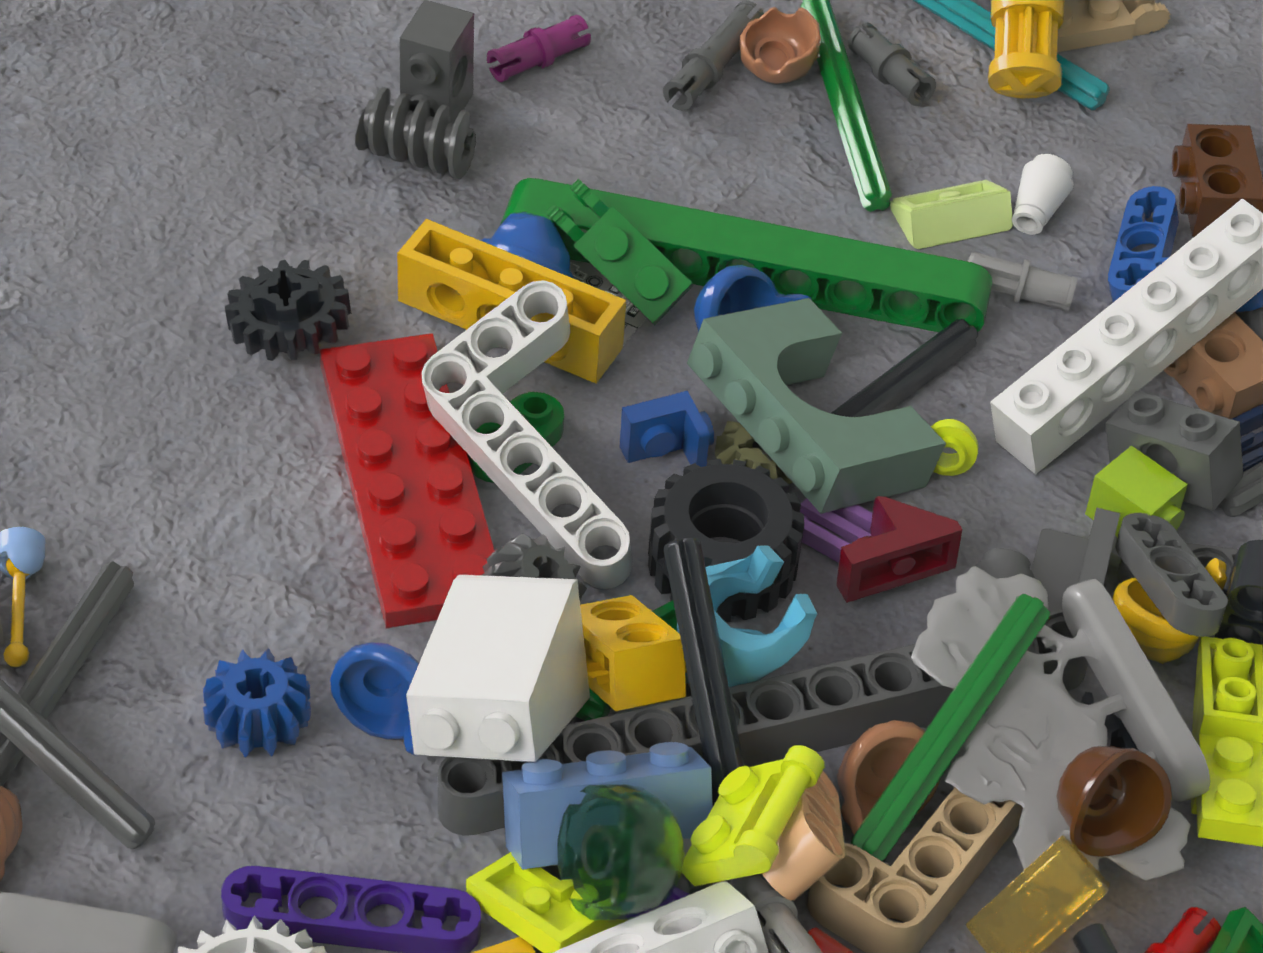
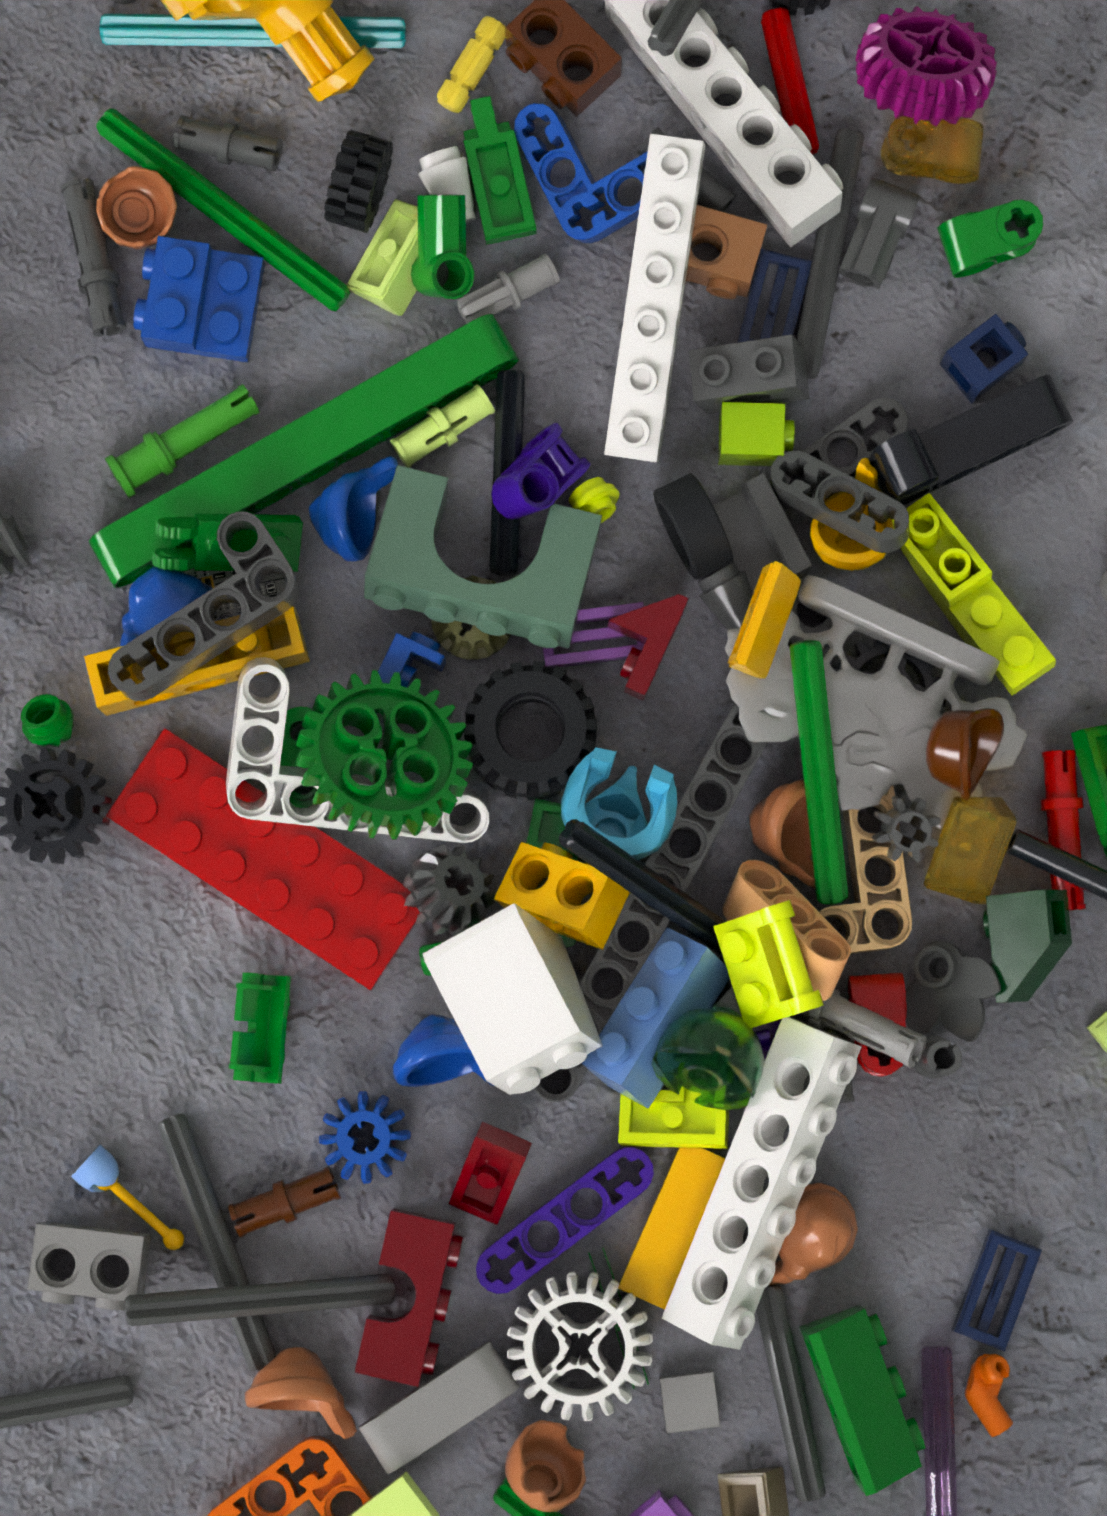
camera: 40 degrees left, 35 degrees up
(136, 699) = (284, 1201): none -> reddish brown pin
(203, 825) = (402, 1346): none -> dark red arch
(286, 552) = (265, 1006): none -> green hinge
(332, 809) = (489, 1173): none -> dark red slope
(352, 261) = (47, 721): none -> green plate
(523, 246) = (198, 615): none -> dark grey beam
(615, 455) = (431, 753): none -> green gear
(648, 184) = (160, 452): none -> bright green pin
(765, 127) = (199, 299): none -> blue plate
(877, 319) = (442, 426): none -> yellowish green pin
(926, 382) = (545, 470): none -> dark purple piece
(969, 131) = (358, 181): none -> black tyre
(996, 207) = (439, 241): none -> green piece
(1000, 810) = (916, 818): none -> dark grey gear
(1013, 564) = (765, 620): none -> yellow slope
(1019, 501) = (693, 526): none -> black tyre
(1085, 214) = (497, 176): none -> green hinge
(1133, 147) = (471, 64): none -> light yellow axle

